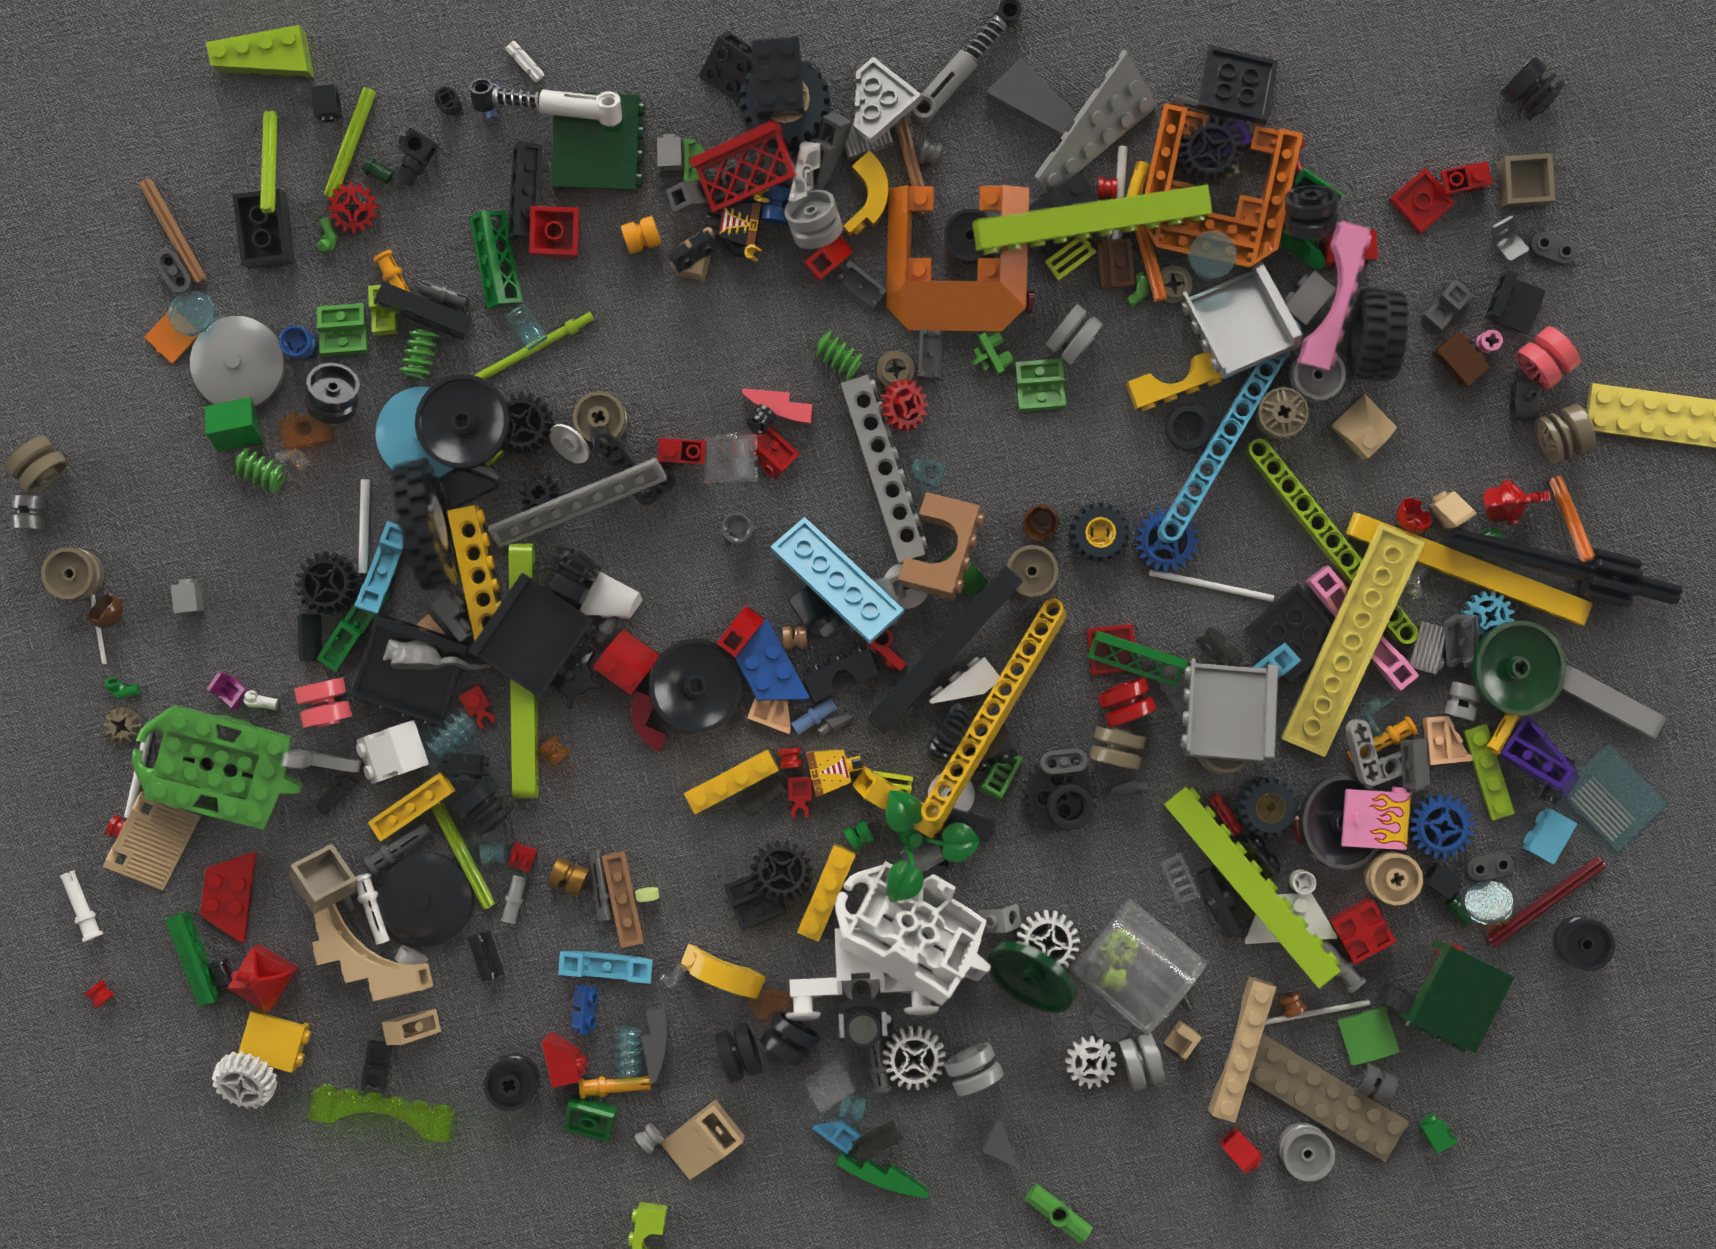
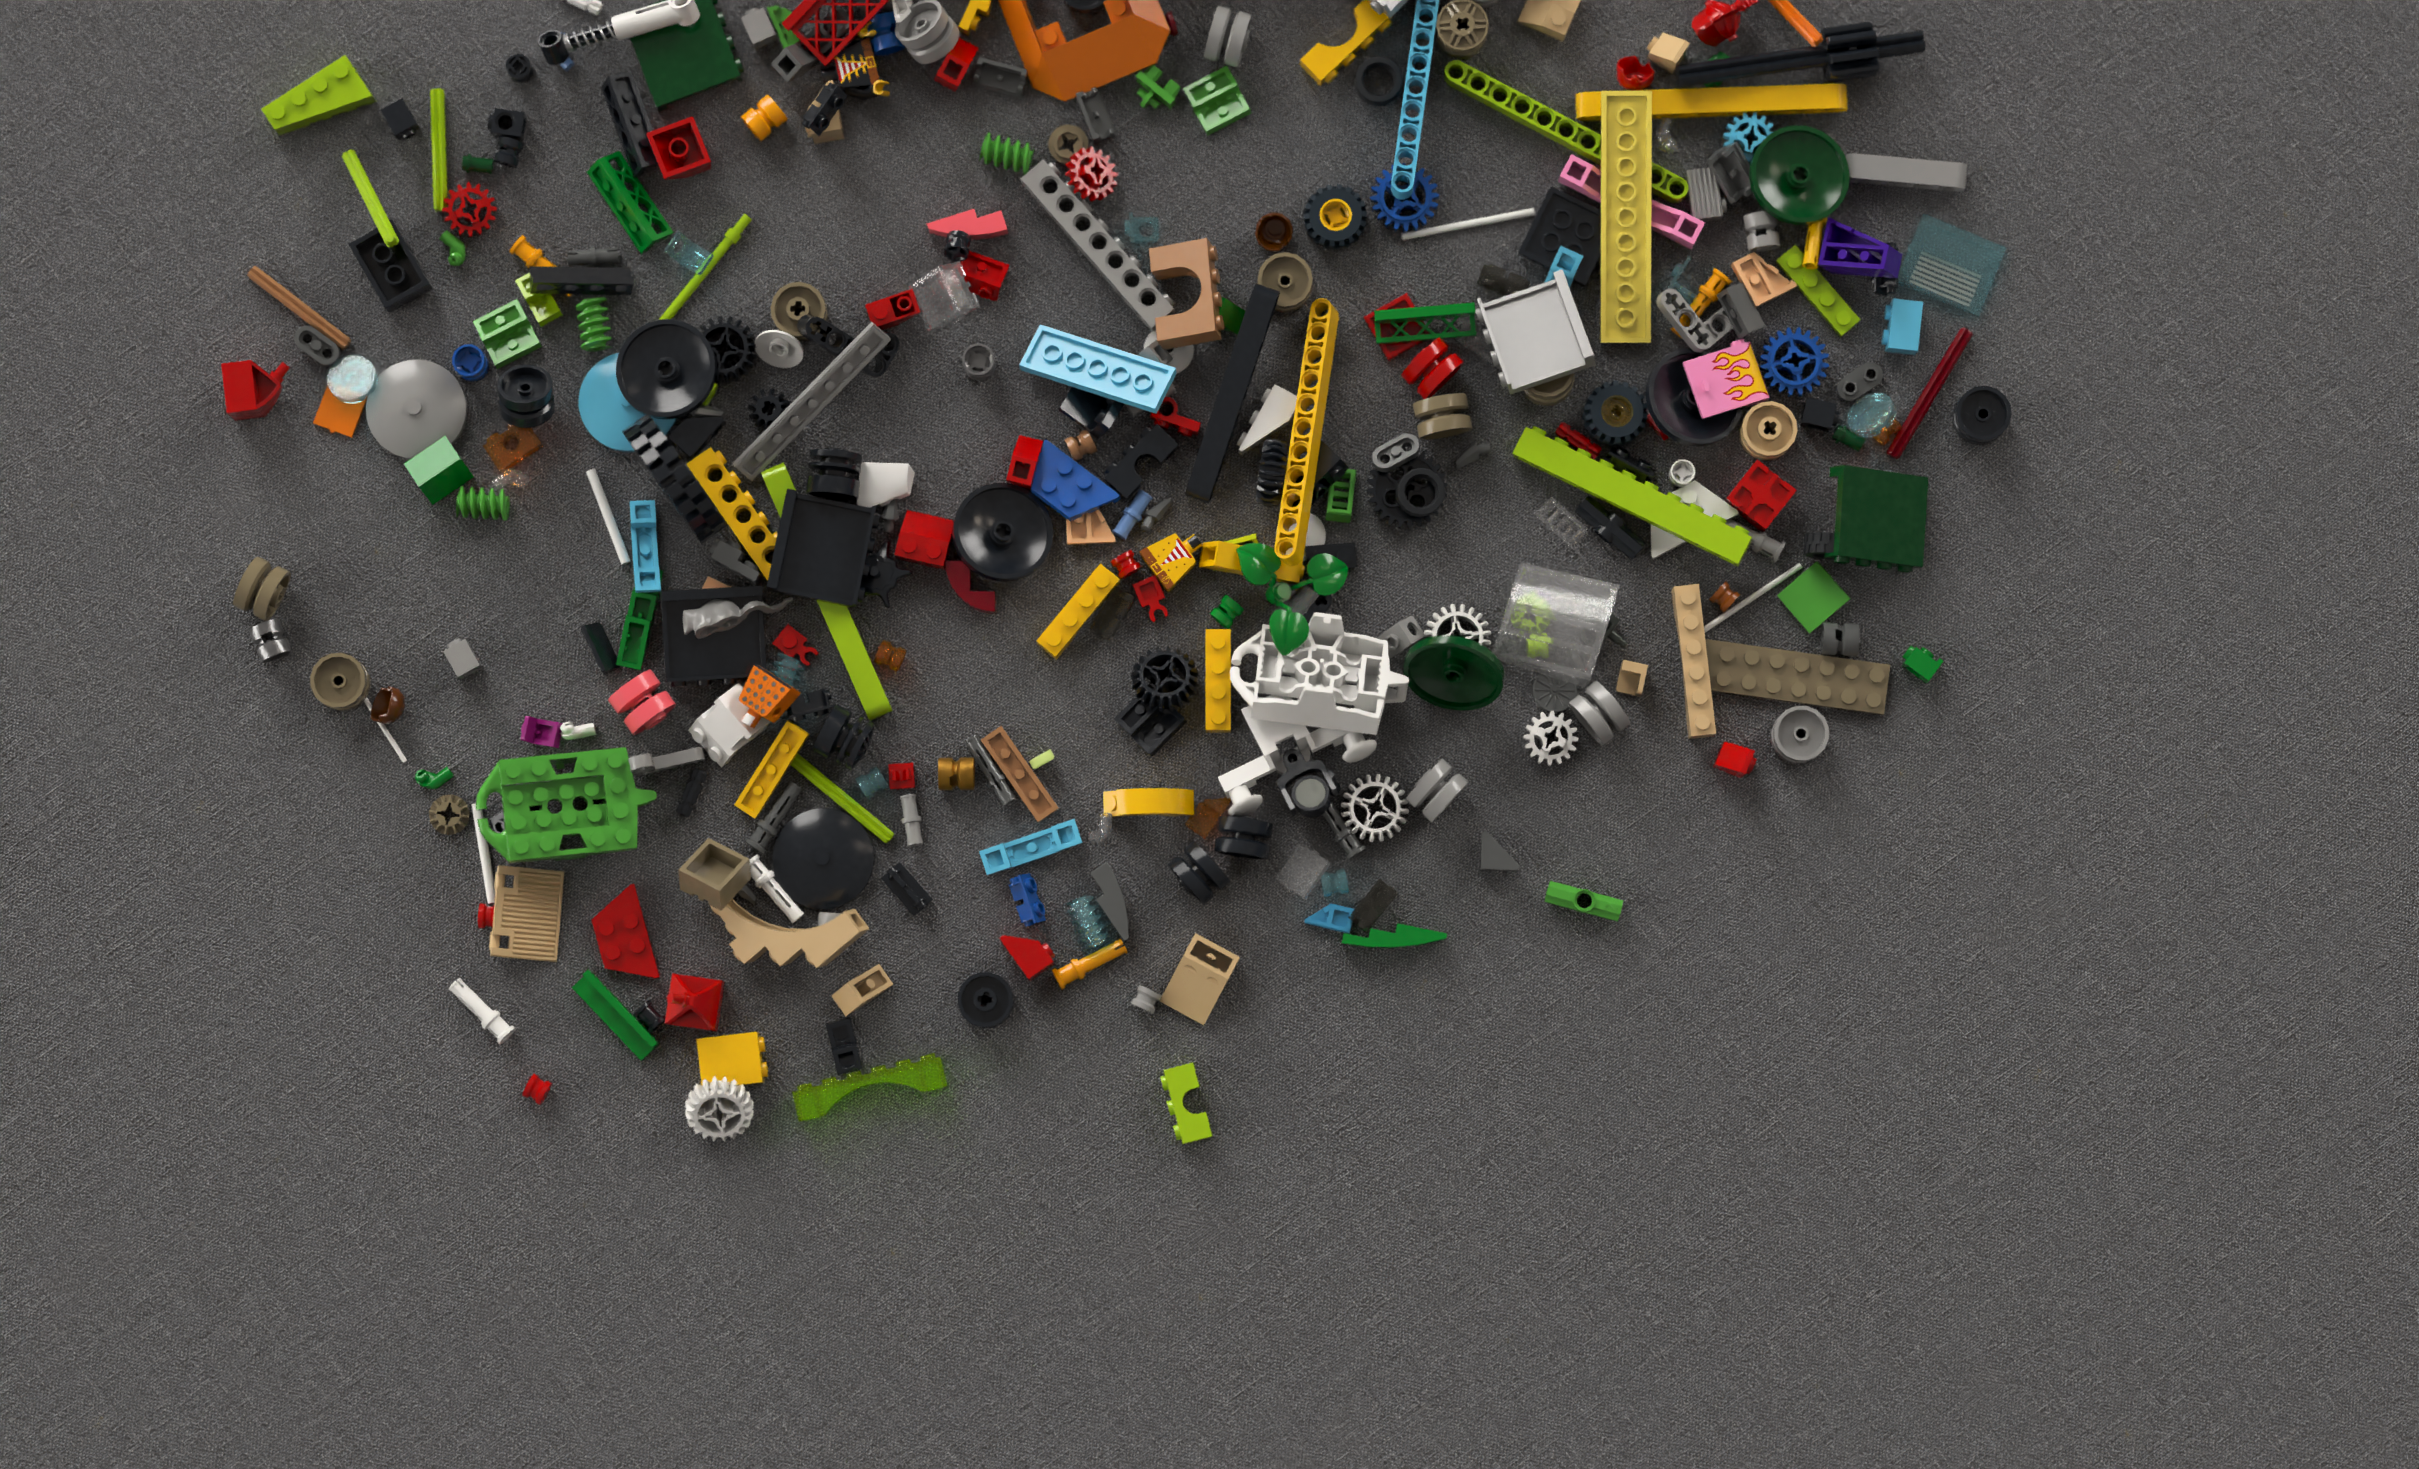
camera: 20 degrees left, 5 degrees down
(97, 285) = (250, 389): none -> red piece
(310, 573) = (594, 596): black gear -> none
(429, 745) = (766, 696): none -> orange torso
(590, 1118) = (1078, 1006): green slope -> none

